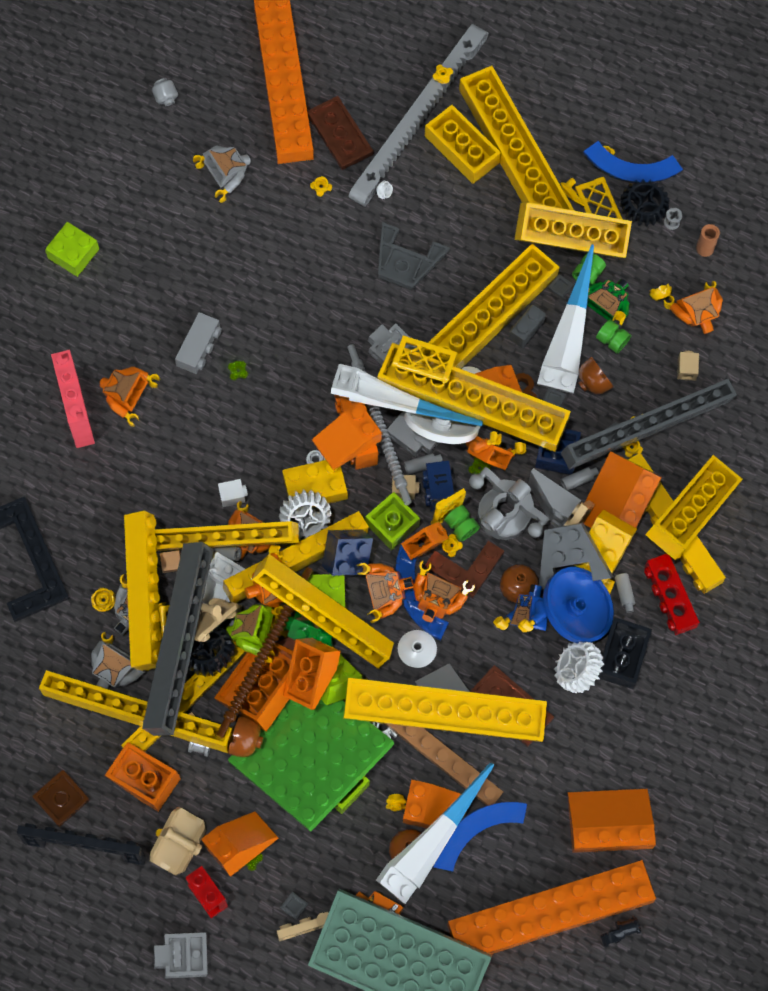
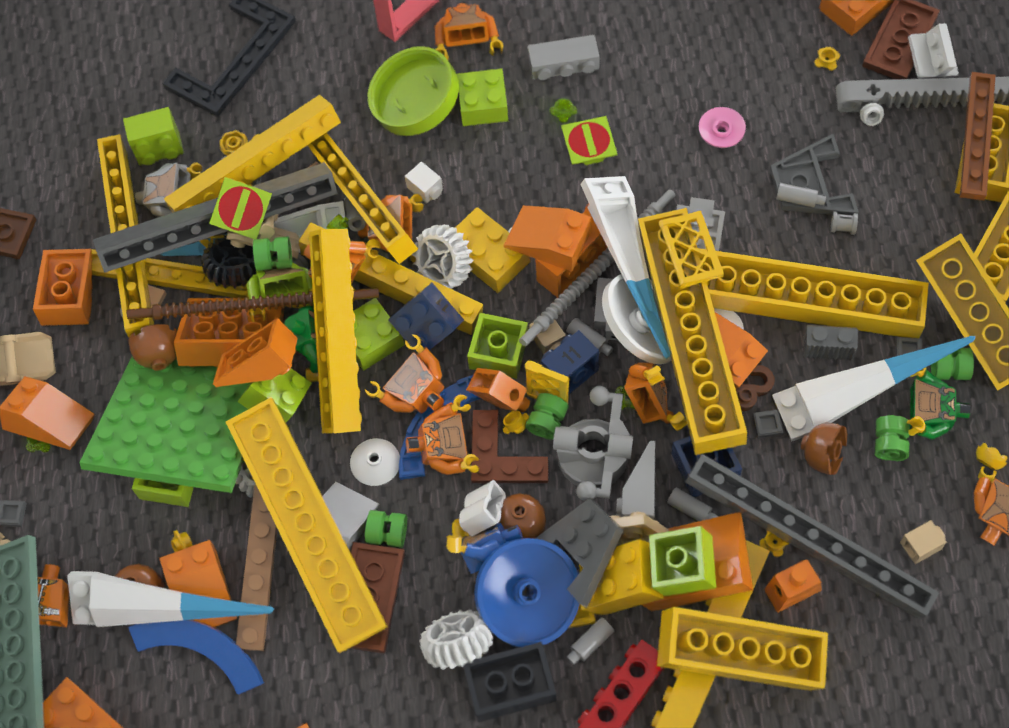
camera: 65 degrees right, 5 degrees down
(62, 649) = (153, 136): none -> lime brick
(155, 454) = (413, 91): none -> lime brick
(191, 414) = (482, 97): none -> lime brick
(192, 615) = (240, 208): none -> piece
(233, 565) = (338, 223): none -> clear neon green plate
(236, 615) = (263, 253): none -> bright green wheel
(276, 369) = (589, 141): none -> piece
(327, 275) = (724, 119): none -> bright pink dish
(370, 123) = (933, 53): none -> white bracket
(415, 272) = (799, 195): none -> light grey cylinder
(450, 261) = (844, 223): none -> light grey bush
(455, 143) = (977, 136): none -> dark orange plate
(468, 671) = (377, 524): none -> bright green wheel
(502, 600) = (482, 508): none -> white brick
(627, 501) = (682, 561): none -> lime brick
(668, 451) = (795, 585): none -> orange torso

